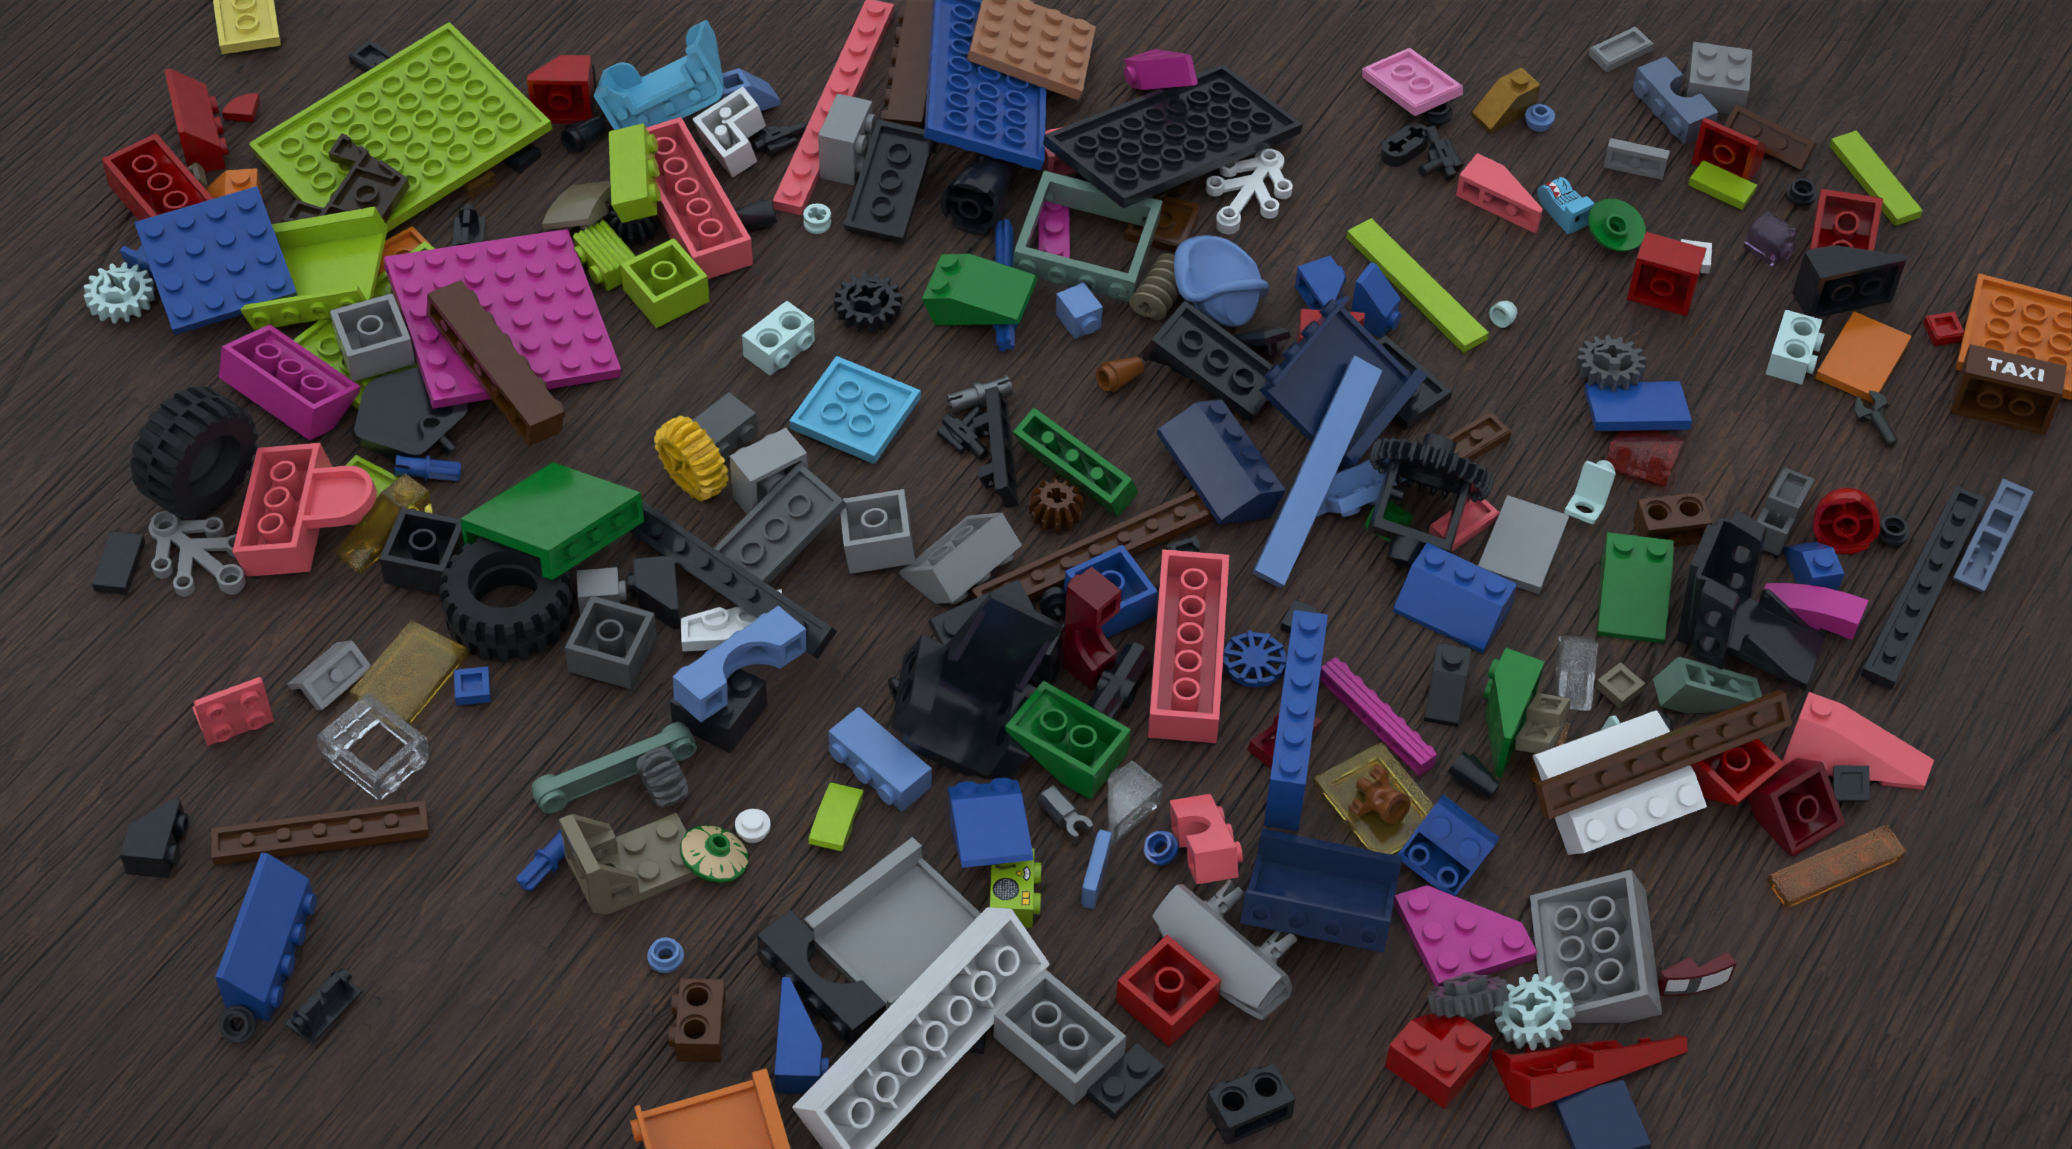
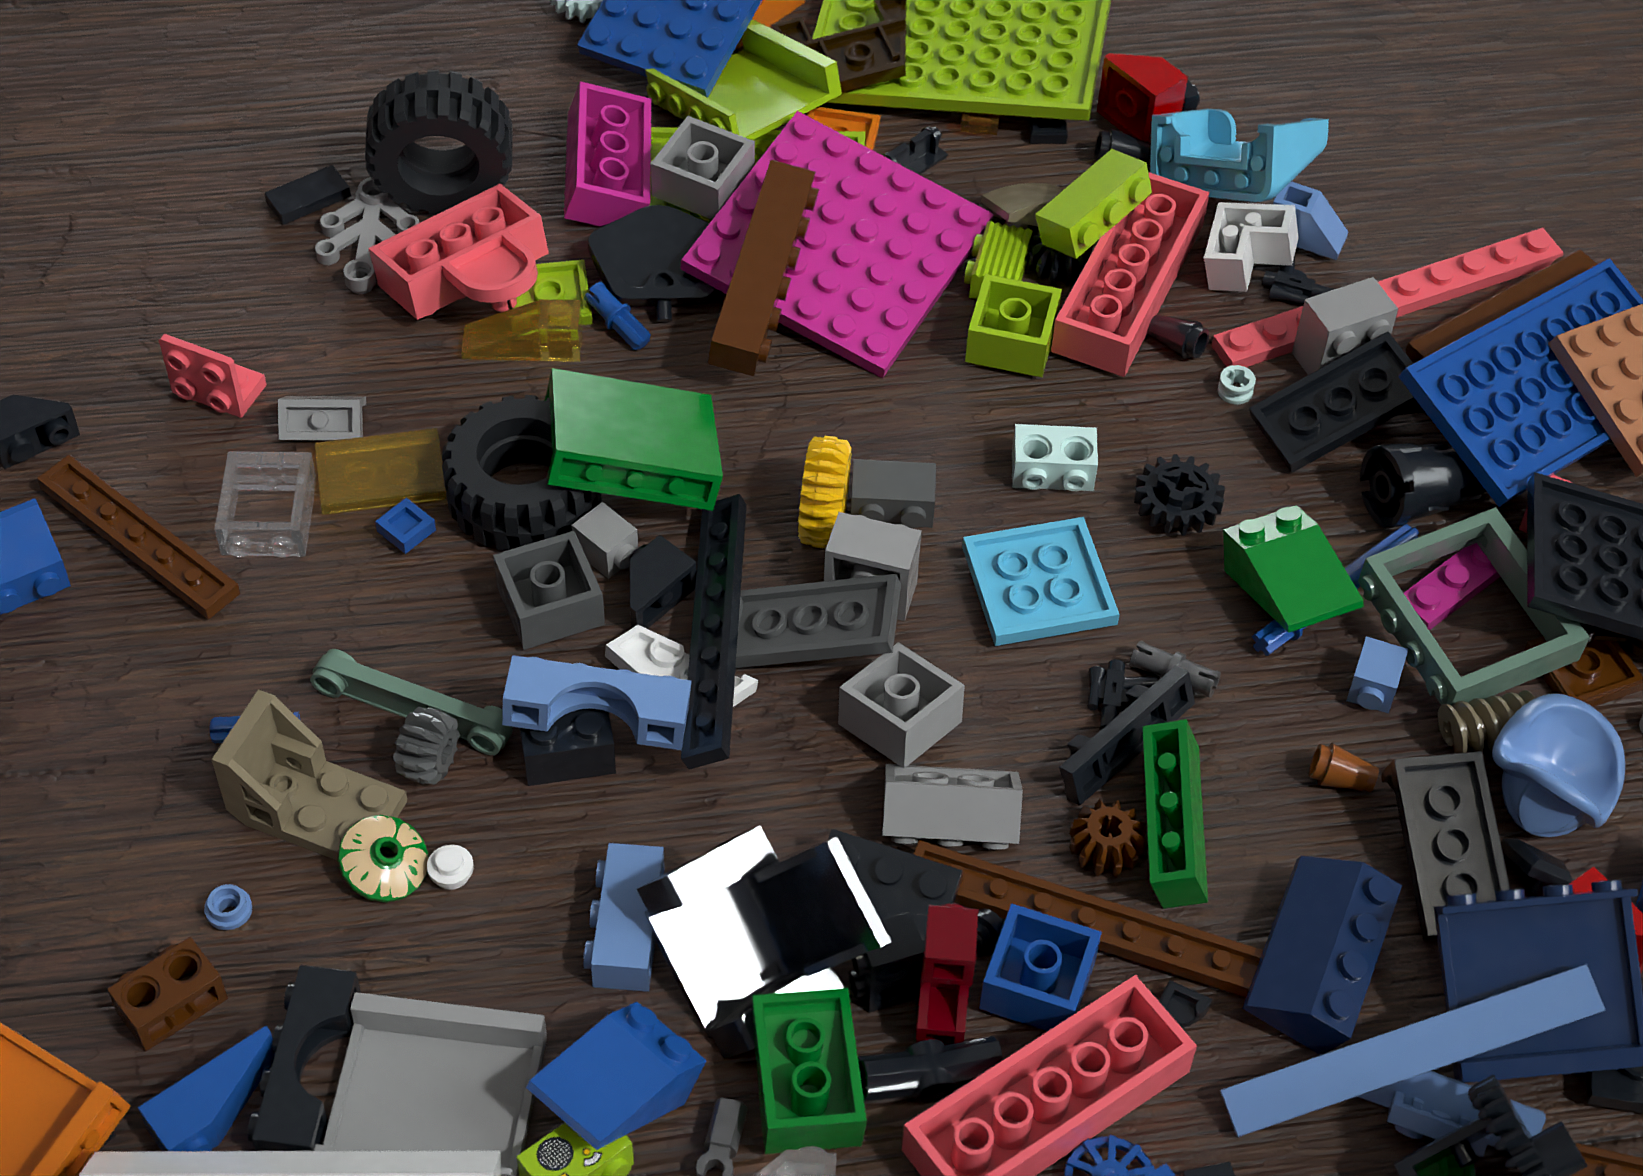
camera: 50 degrees right, 0 degrees up
(420, 549) = (509, 366): black brick -> none
(836, 816) = (519, 930): lime slope -> none

